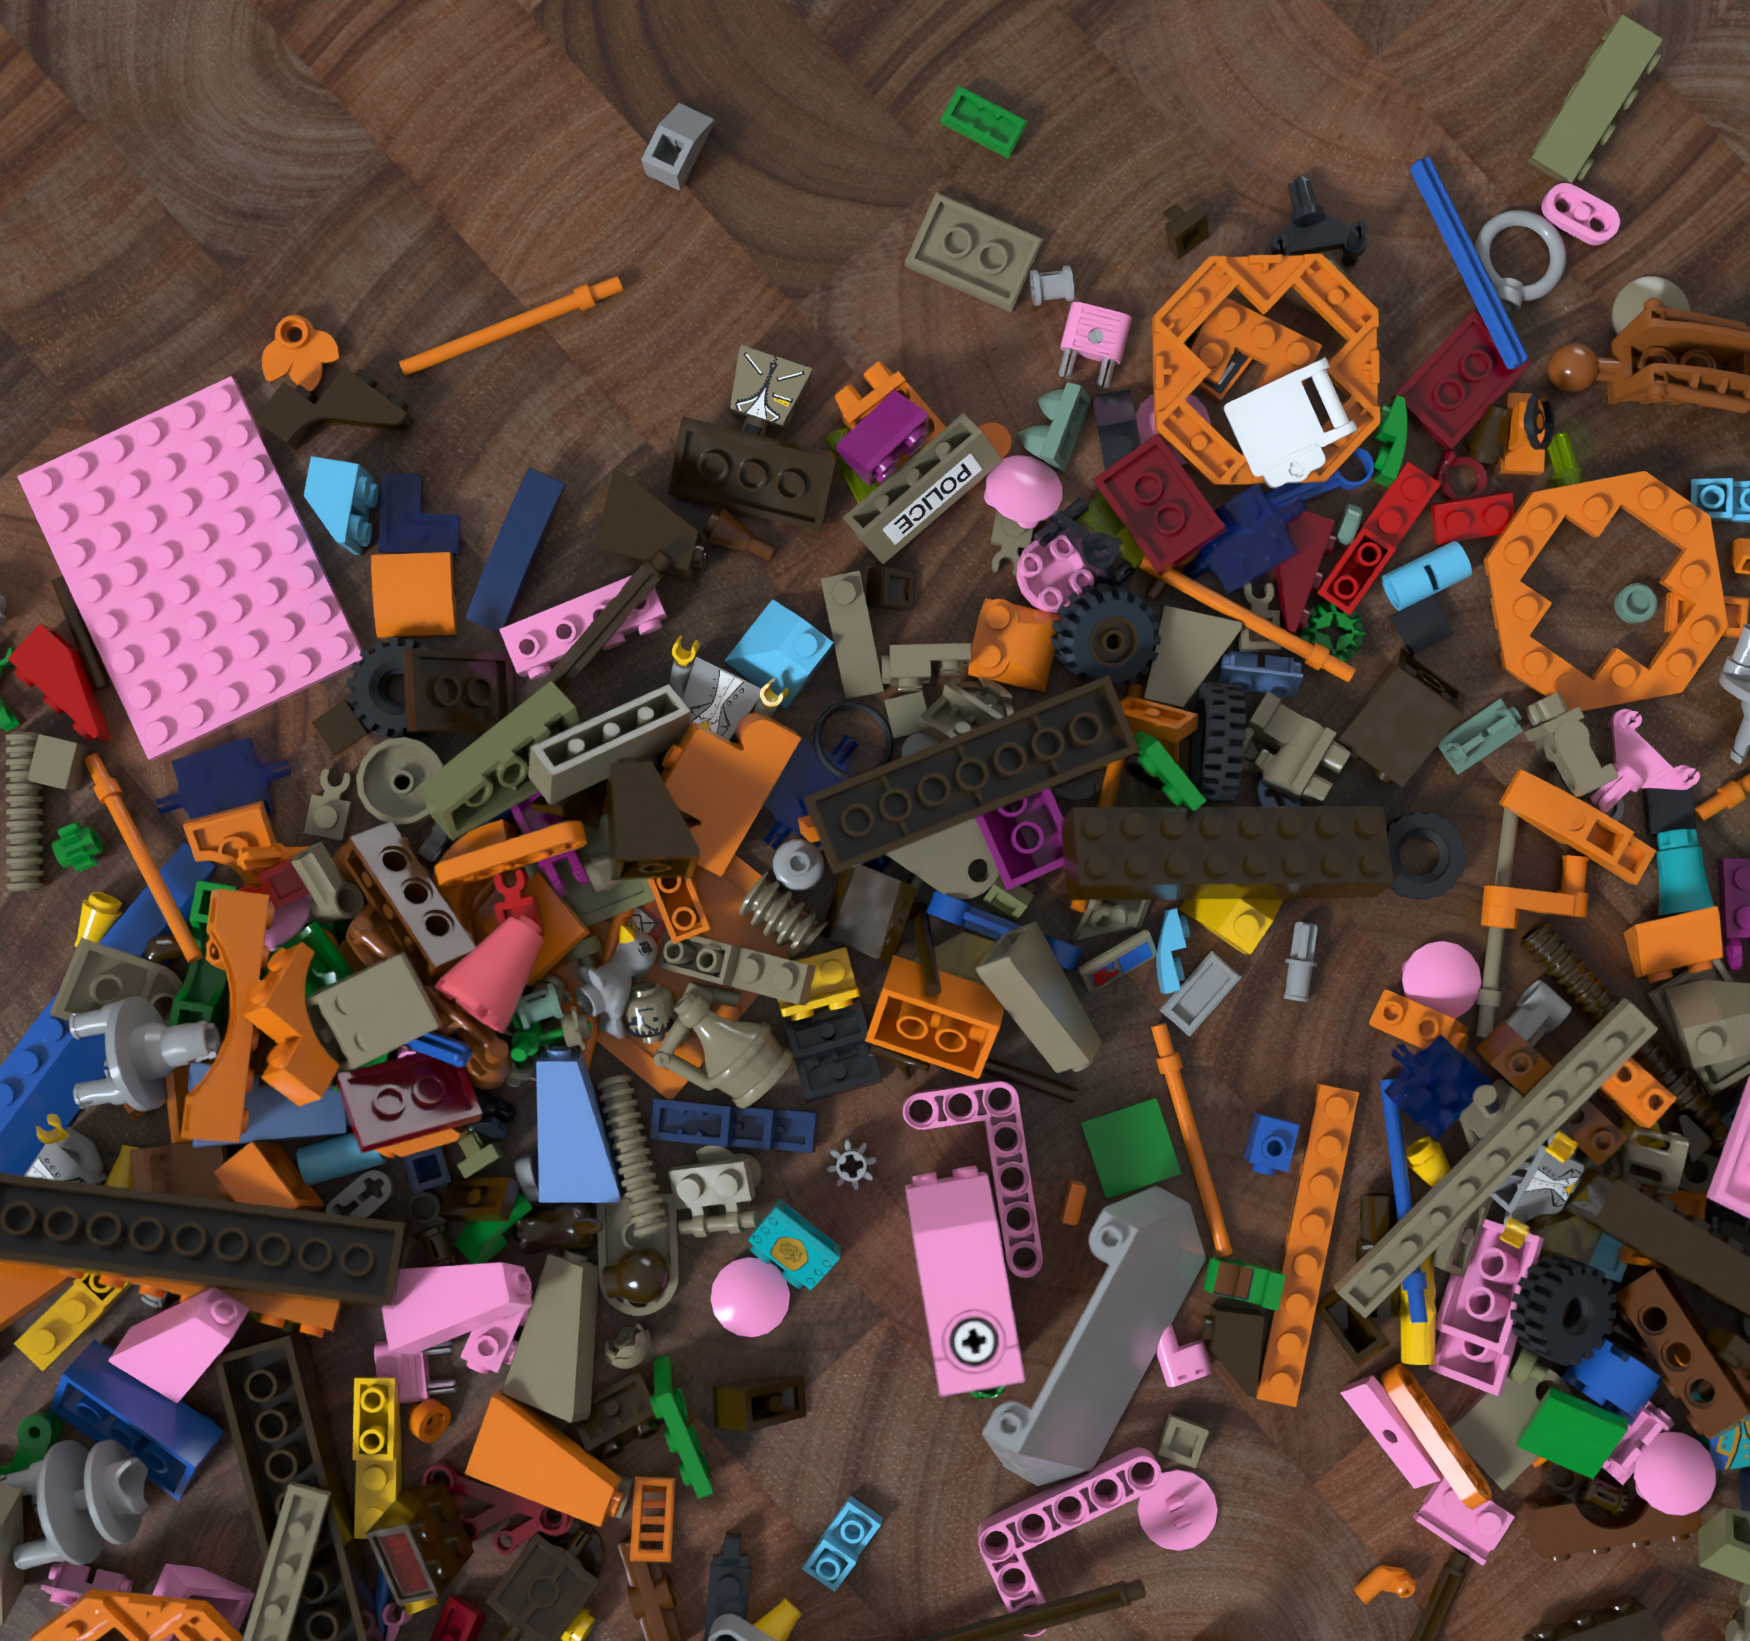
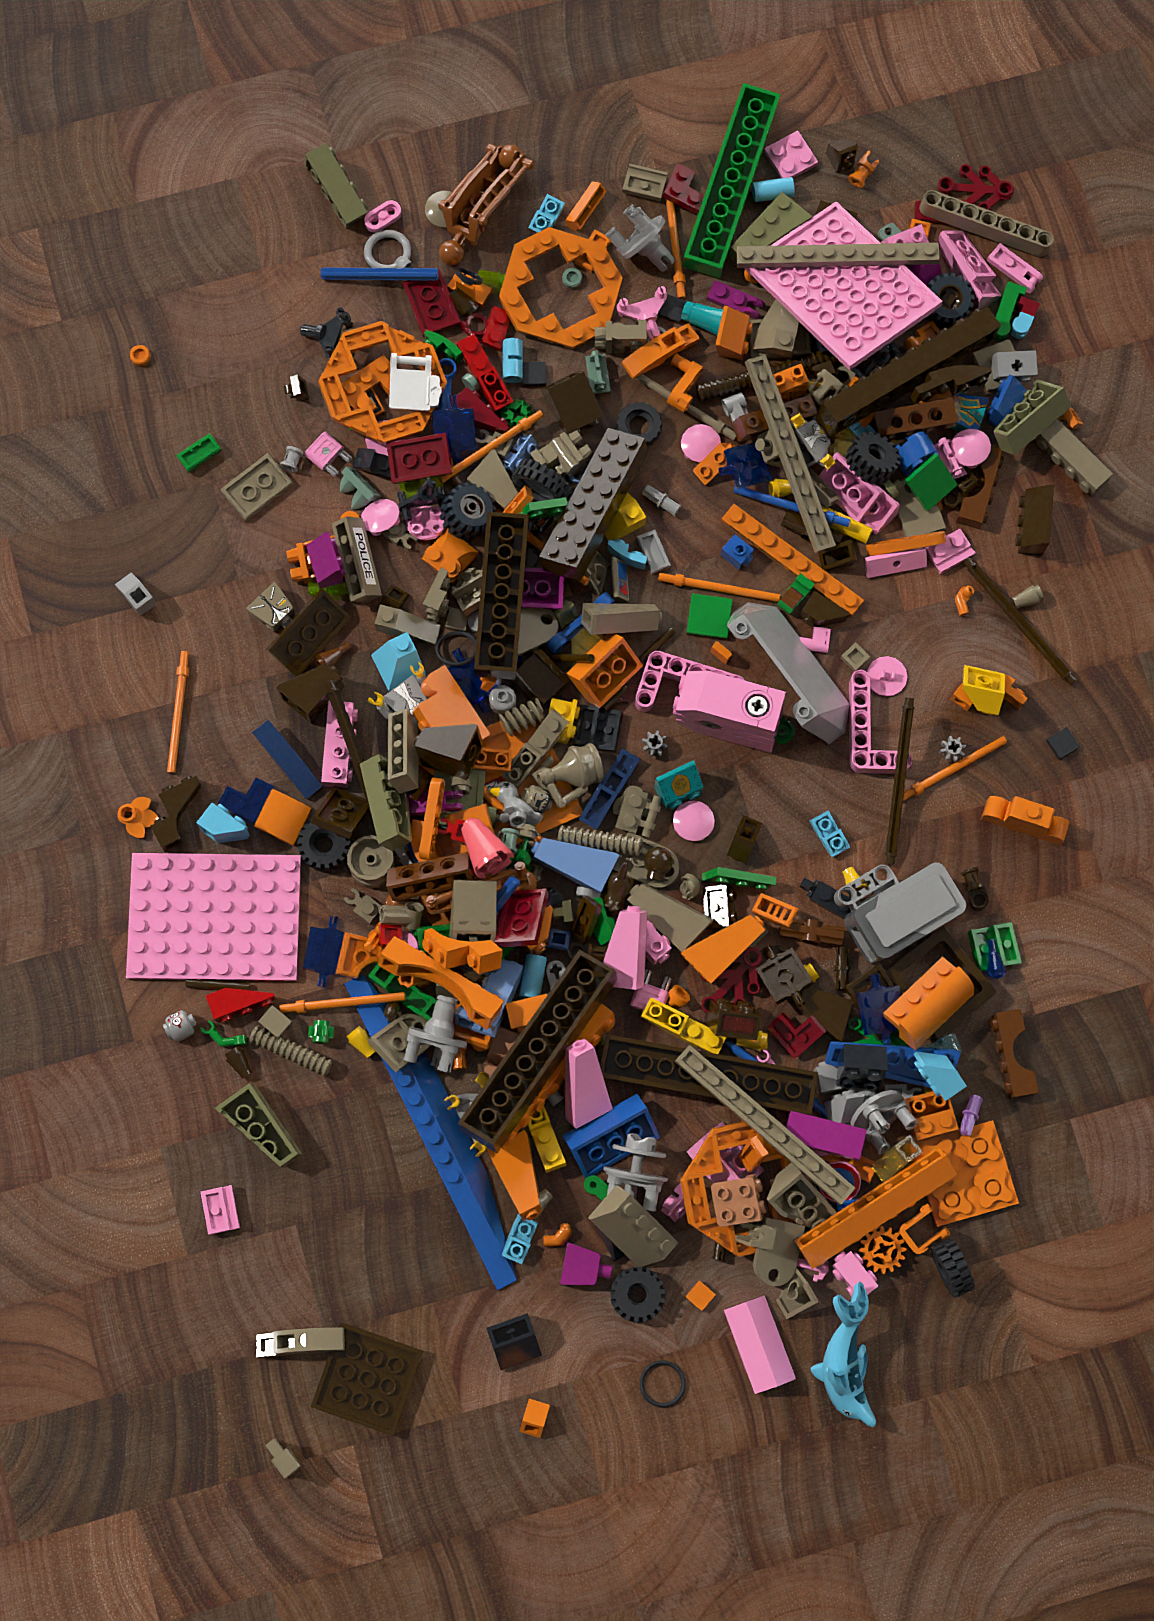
camera: 70 degrees left, 10 degrees down
(340, 727) = (327, 883): dark brown tile -> none

